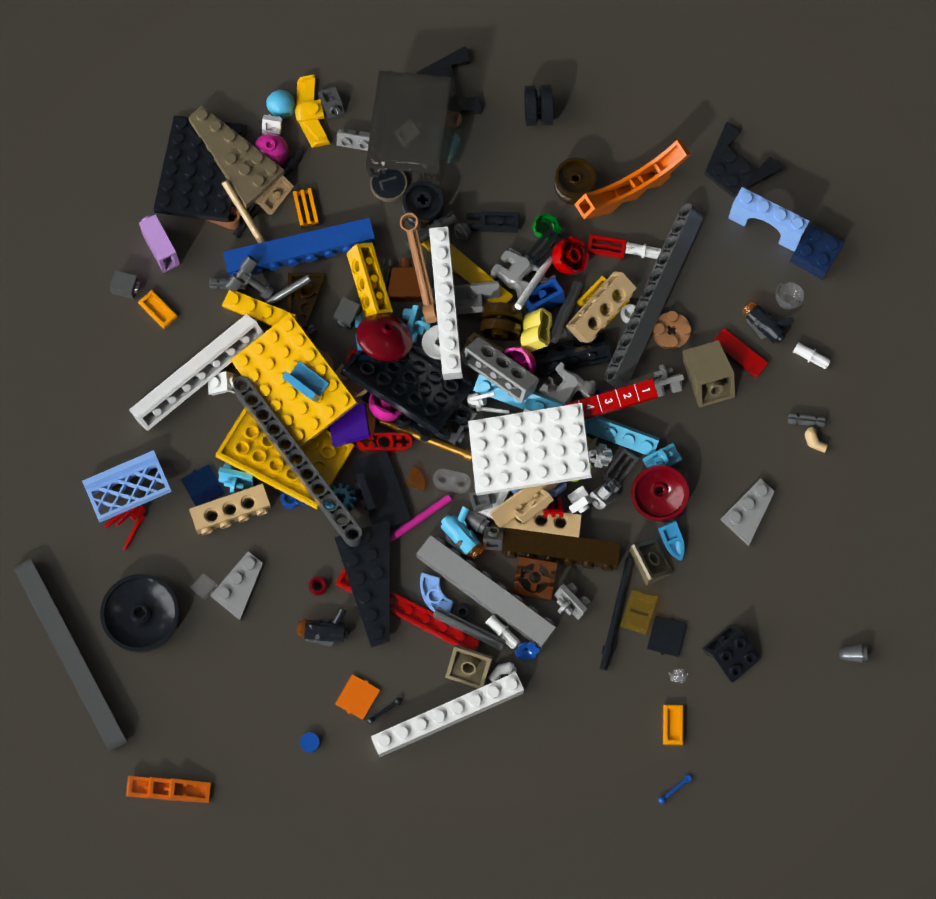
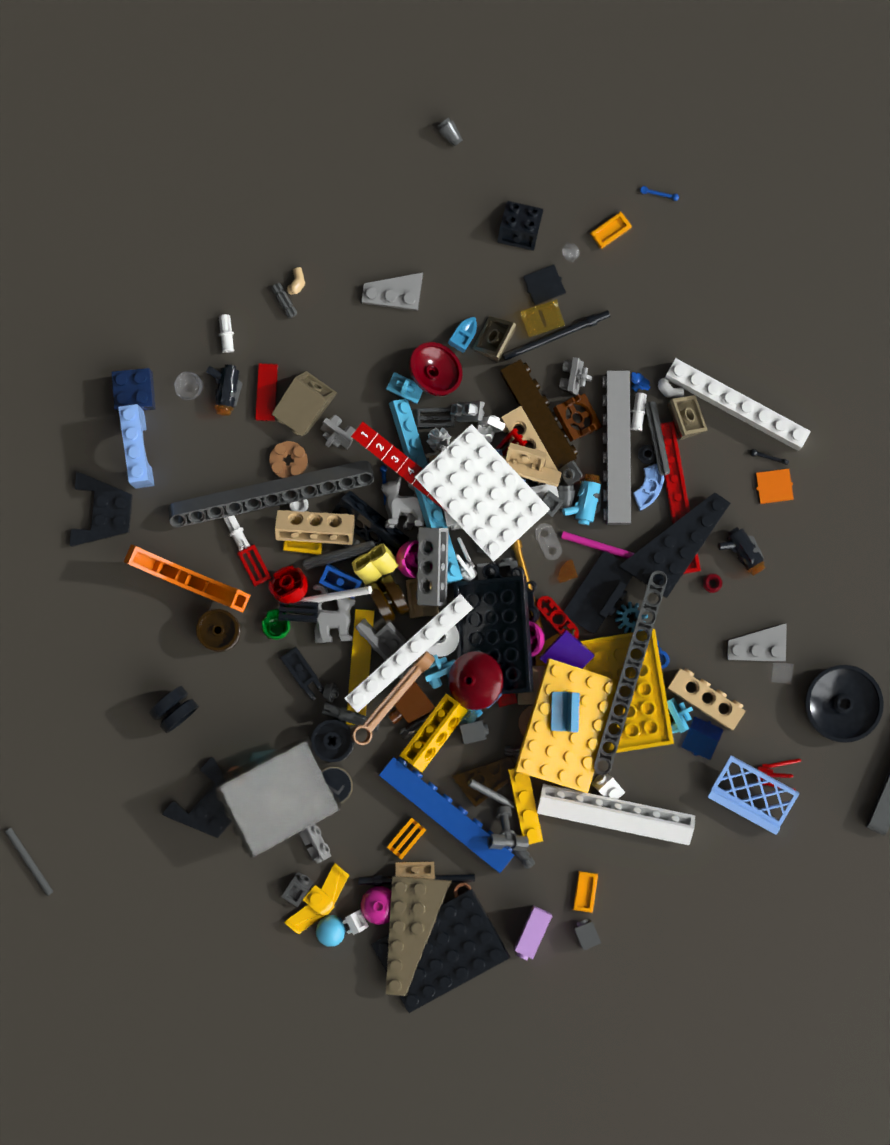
camera: 120 degrees left, 10 degrees up
(242, 210) = (454, 880): tan bar -> none
(309, 742) = (838, 495): blue tile -> none

